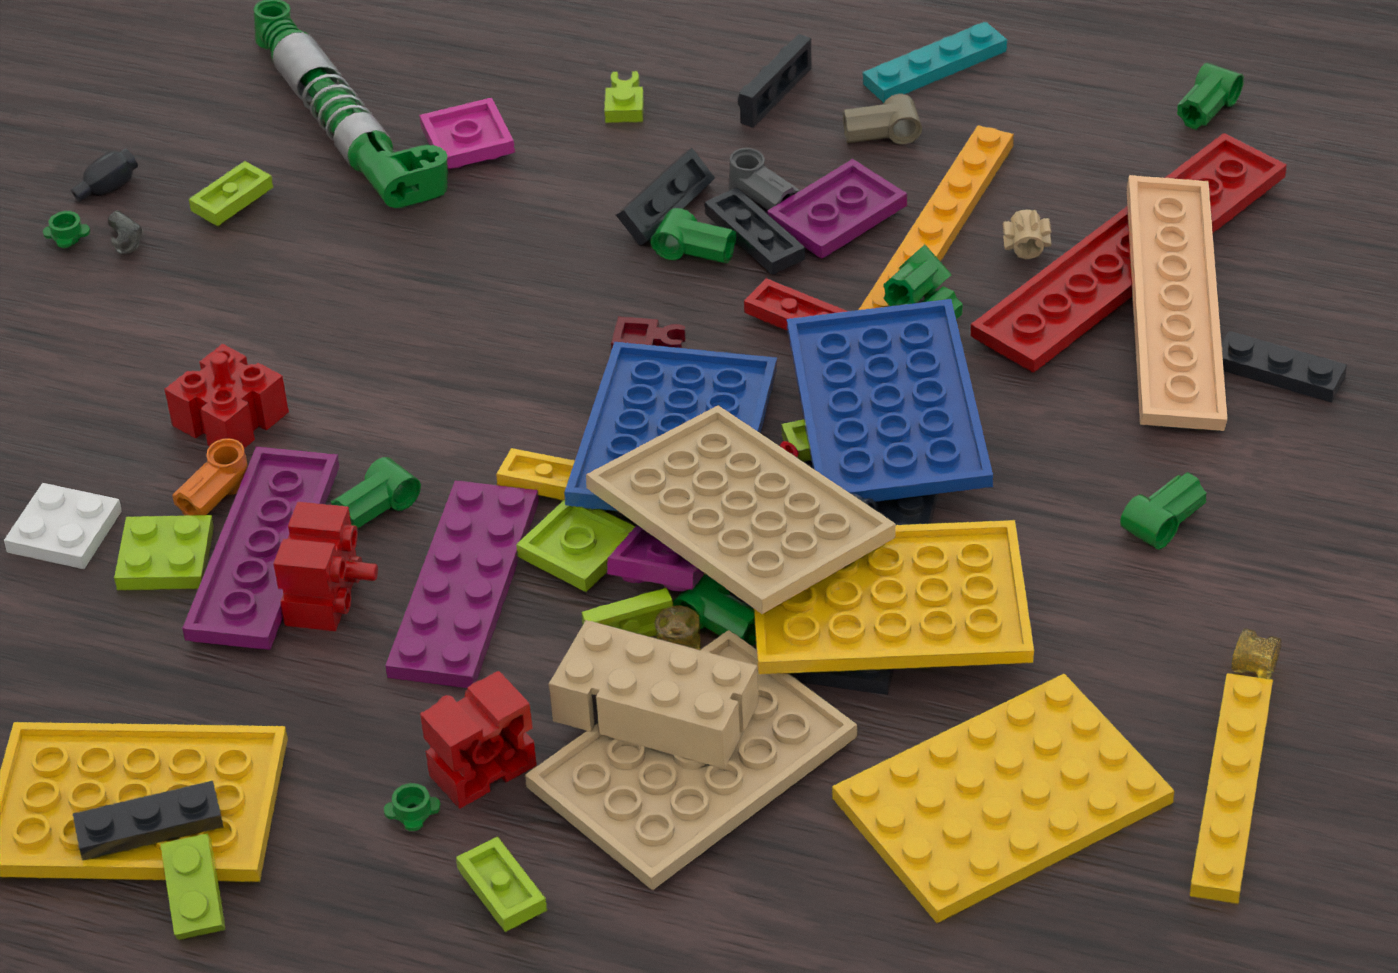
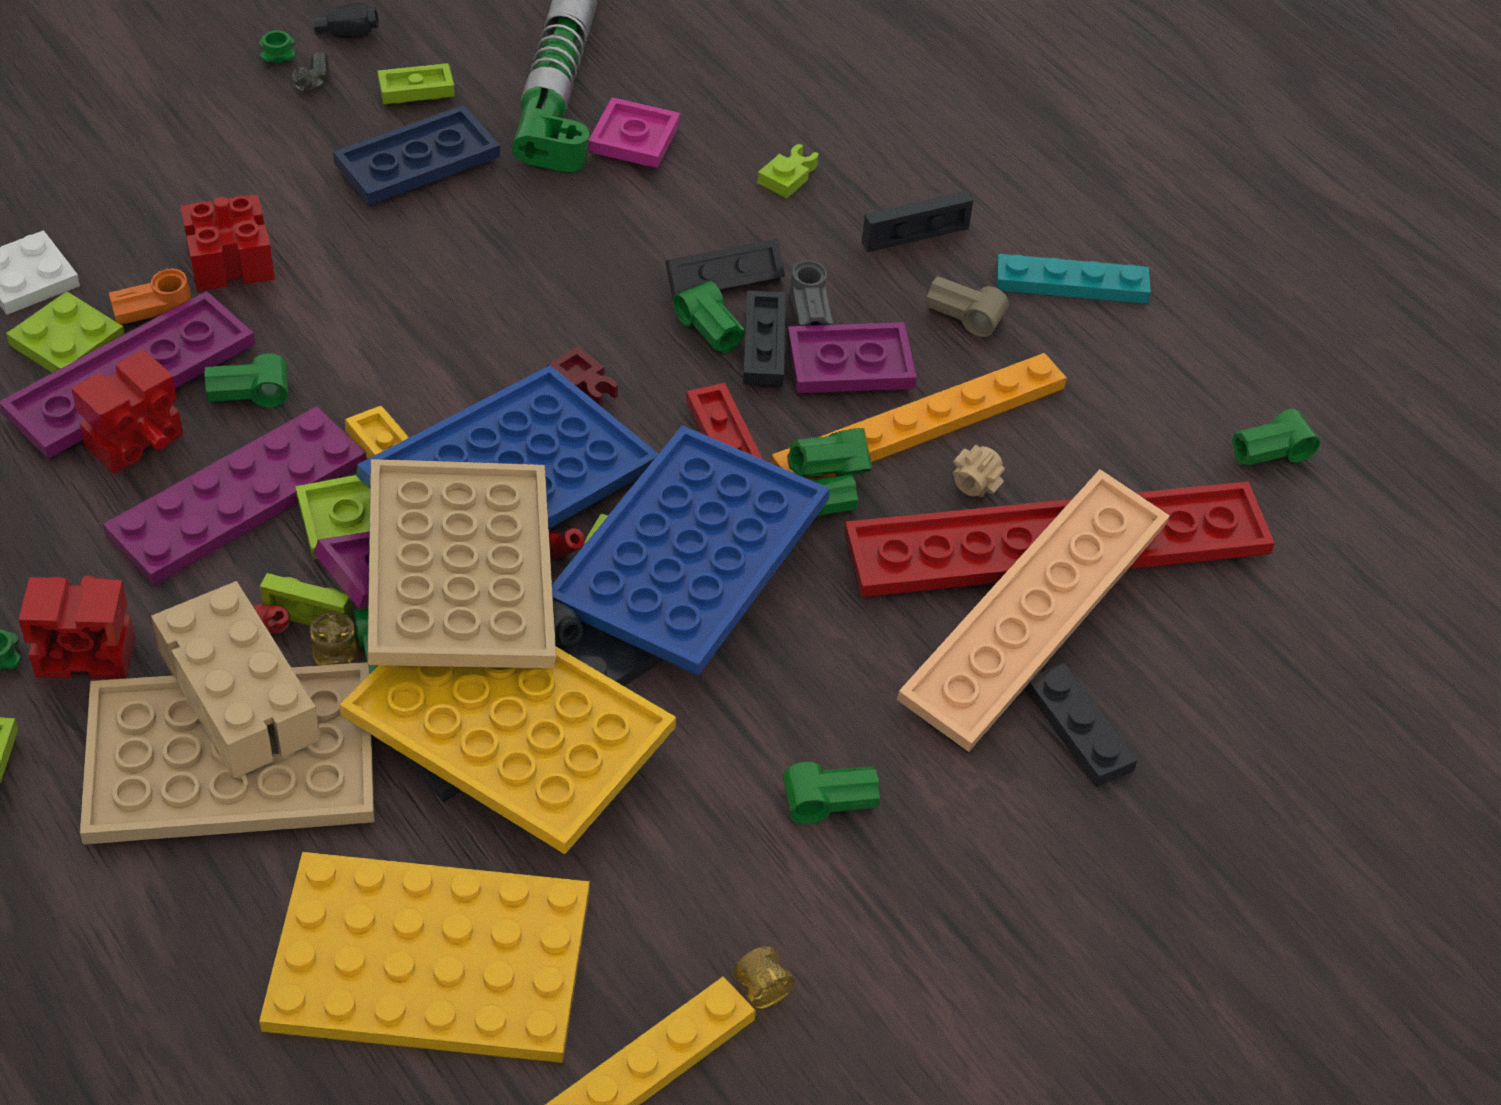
camera: 30 degrees right, 5 degrees up
(301, 248) = (416, 154): none -> dark blue plate

